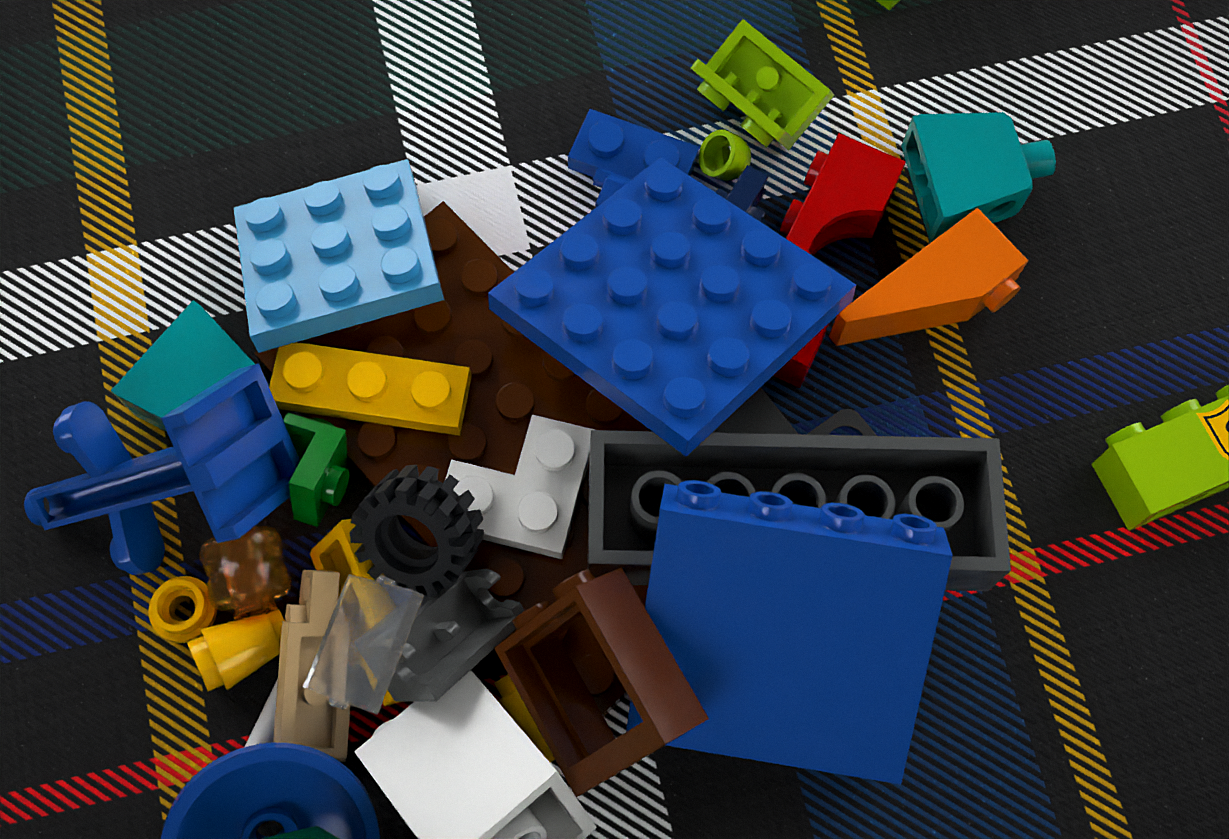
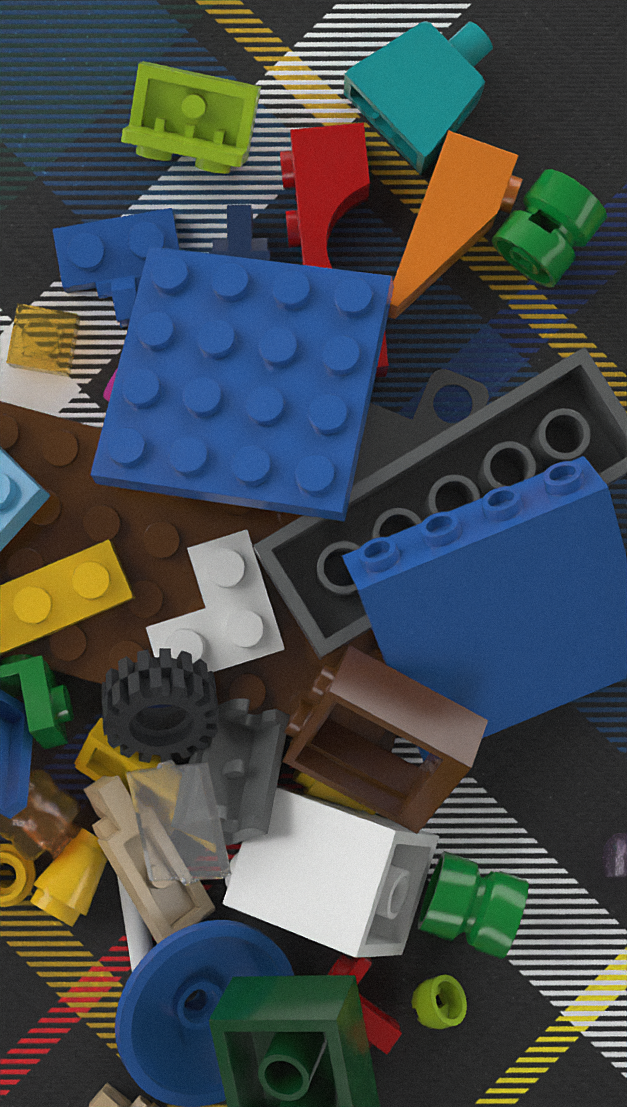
camera: 30 degrees left, 15 degrees up
(524, 190) = (43, 340): none -> clear yellow plate
(721, 162) = (198, 203): lime hinge -> none
(1031, 336) = (556, 219): none -> green wheel

